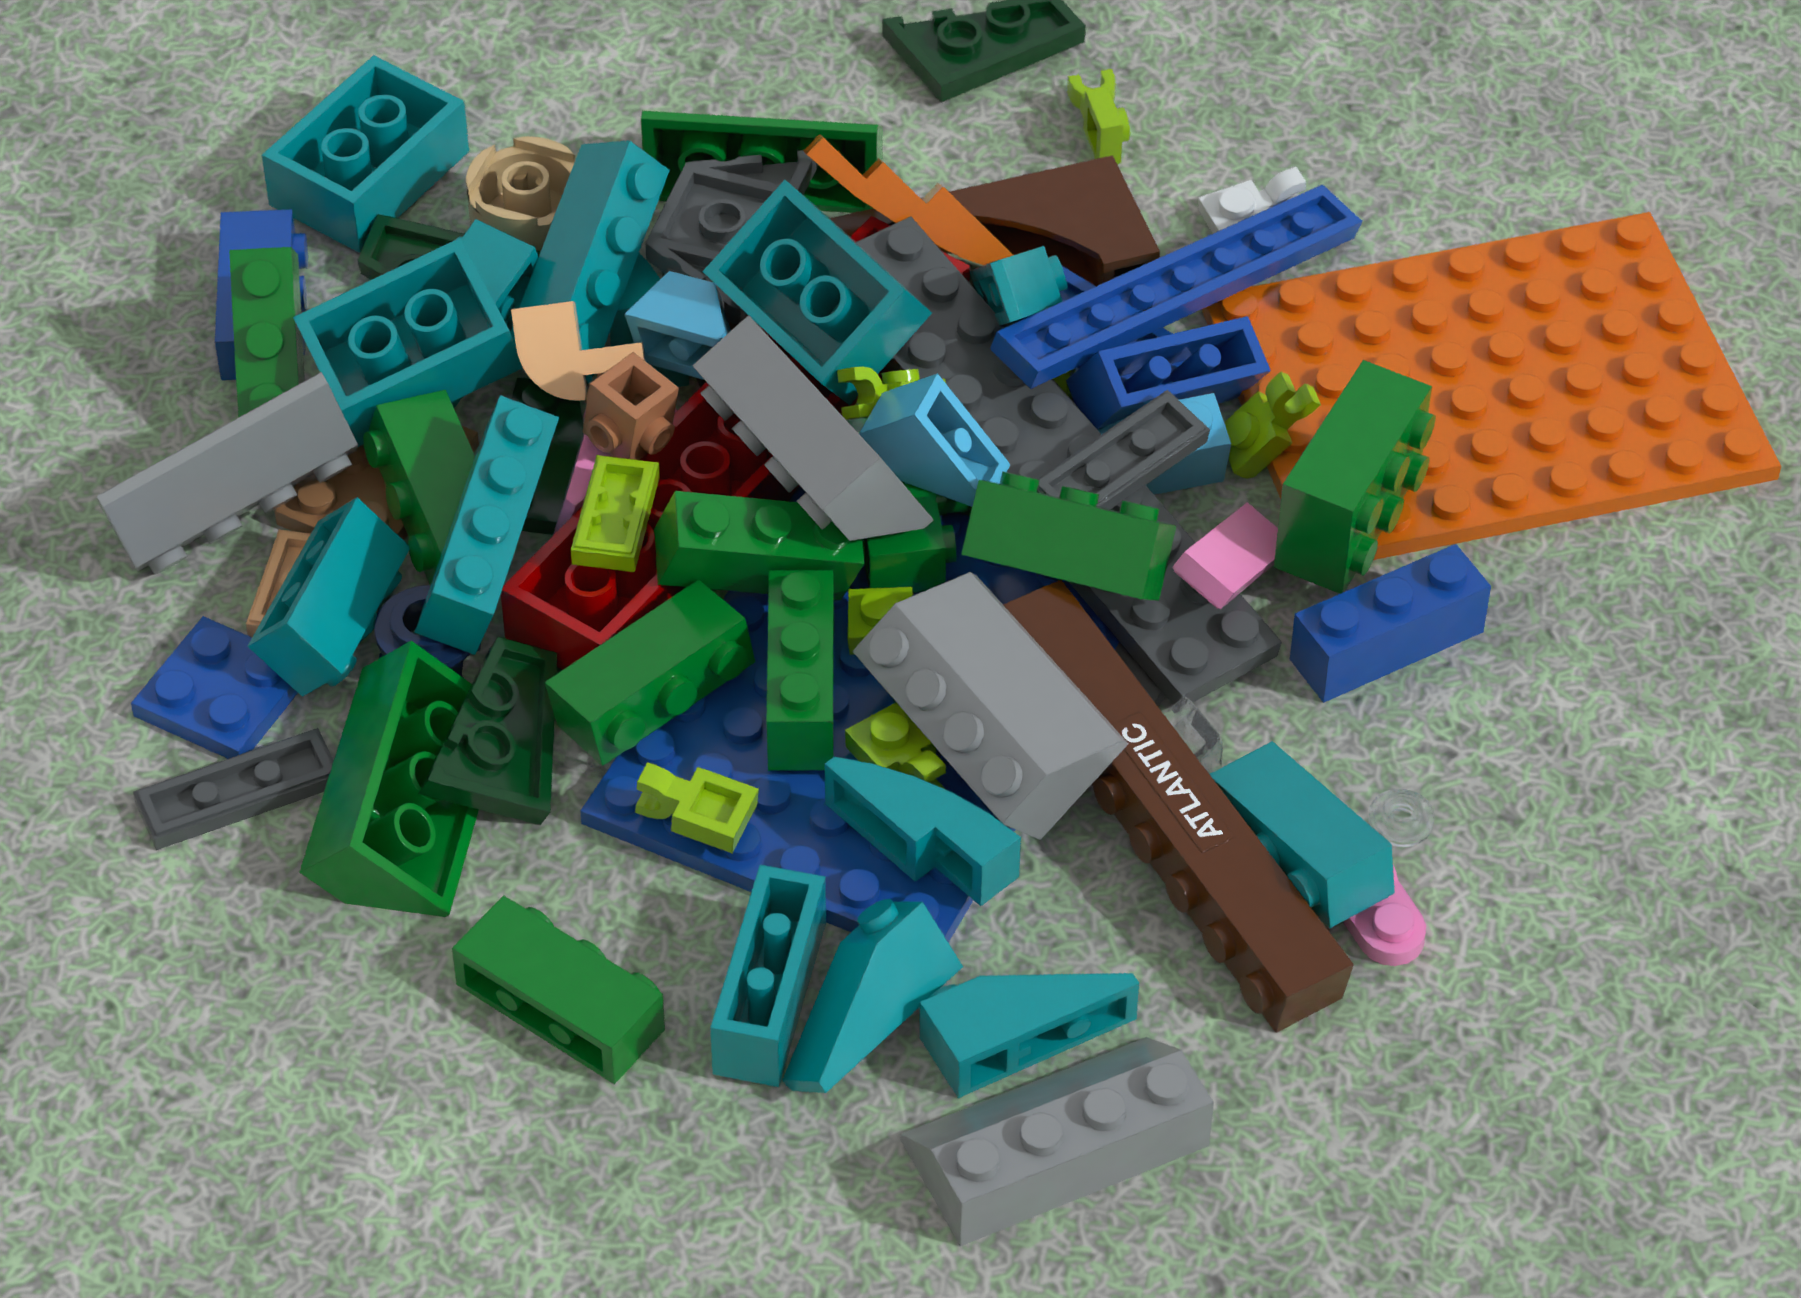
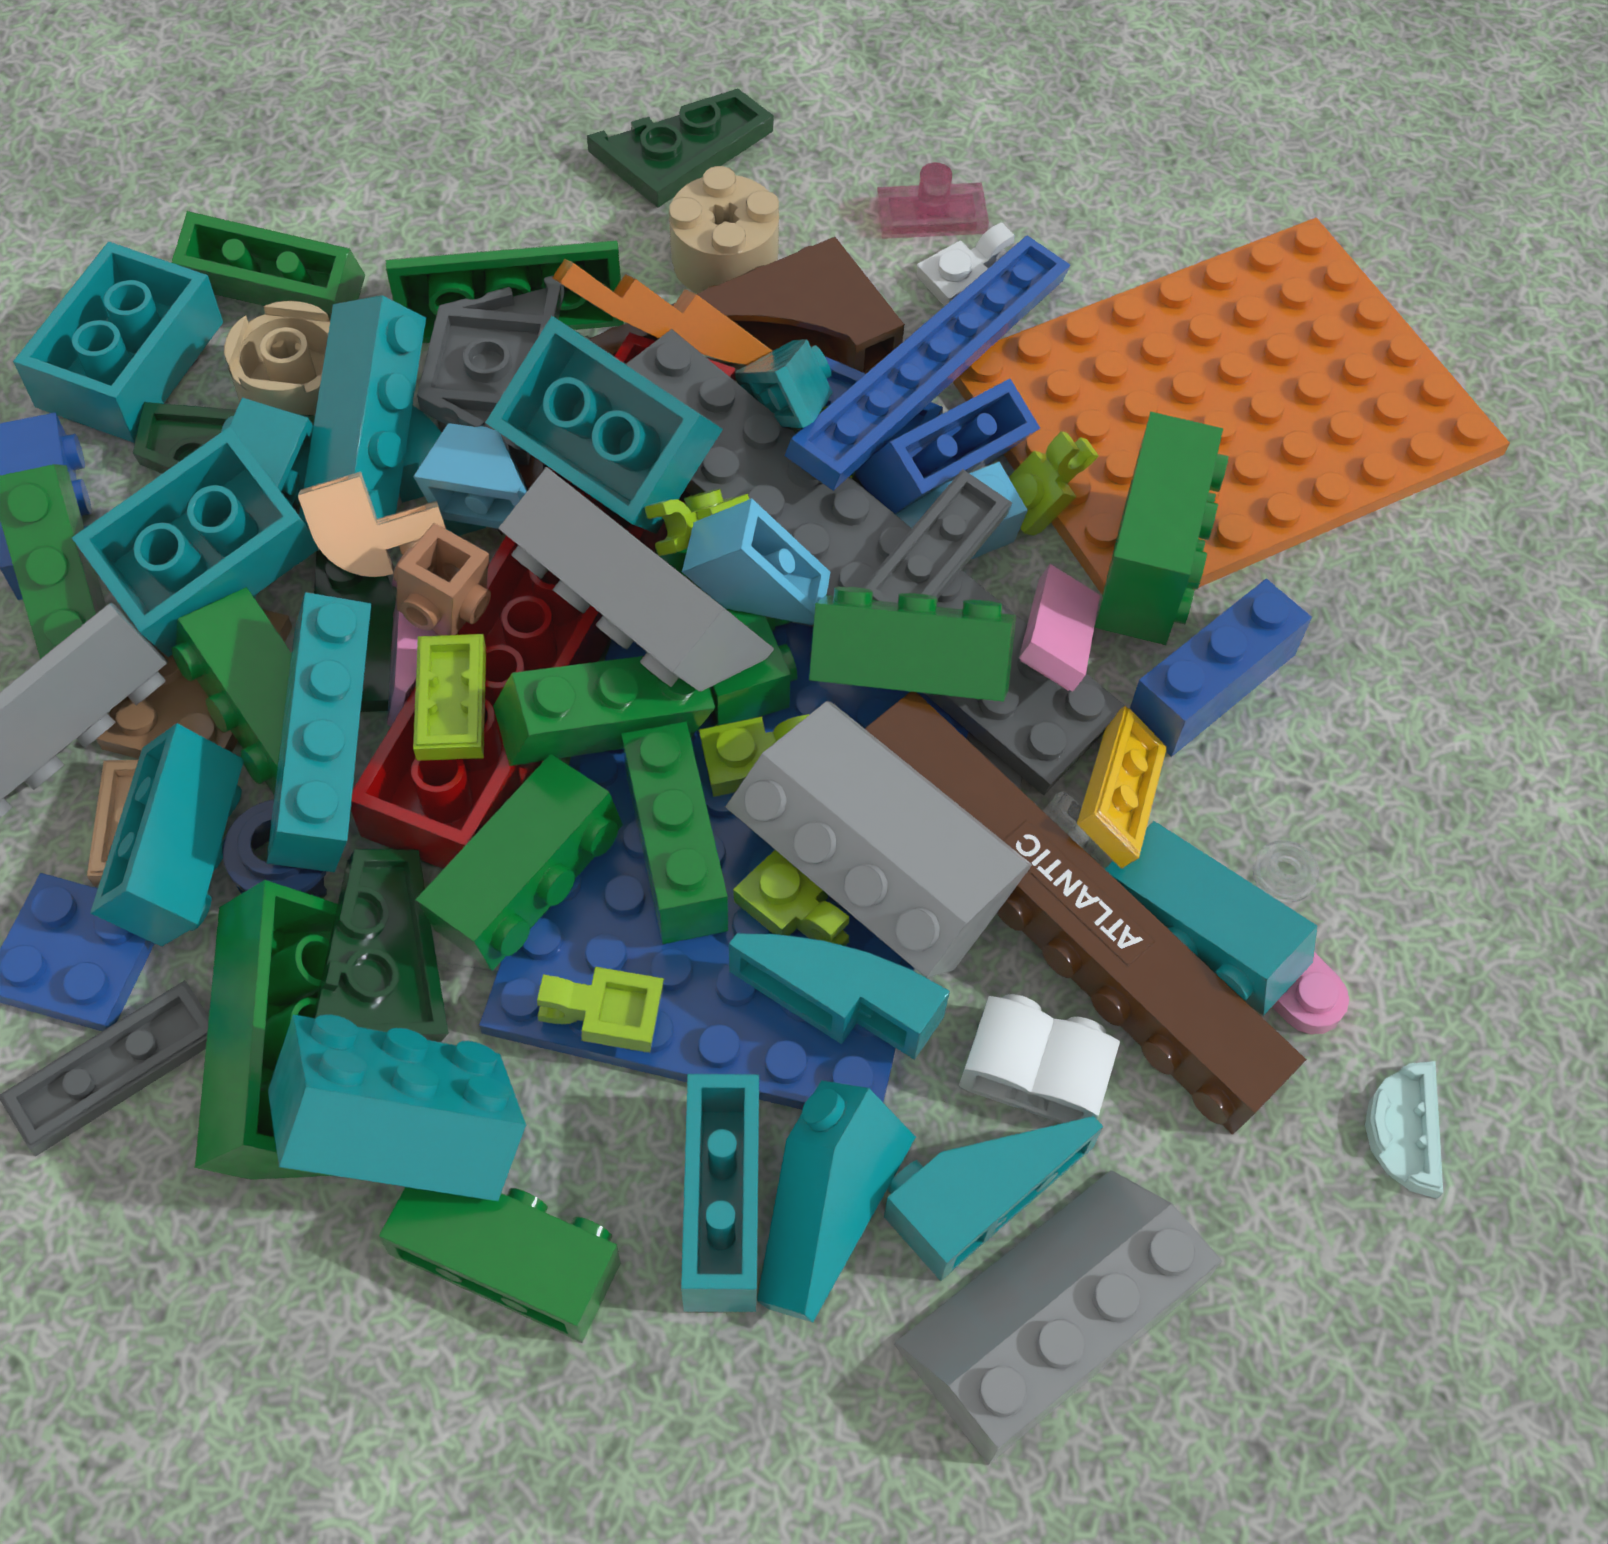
camera: 15 degrees left, 10 degrees up
(490, 837) = (394, 1108): none -> teal brick
(523, 100) = (267, 264): none -> green brick
(998, 130) = (722, 228): none -> tan brick
(1098, 929) = (1039, 1061): none -> white brick
(1103, 122) = (812, 204): lime plate -> none
(1232, 142) = (932, 206): none -> clear pink tile
(1251, 705) = (1122, 787): none -> yellow tile
(1446, 1053) = (1406, 1129): none -> light aqua tile

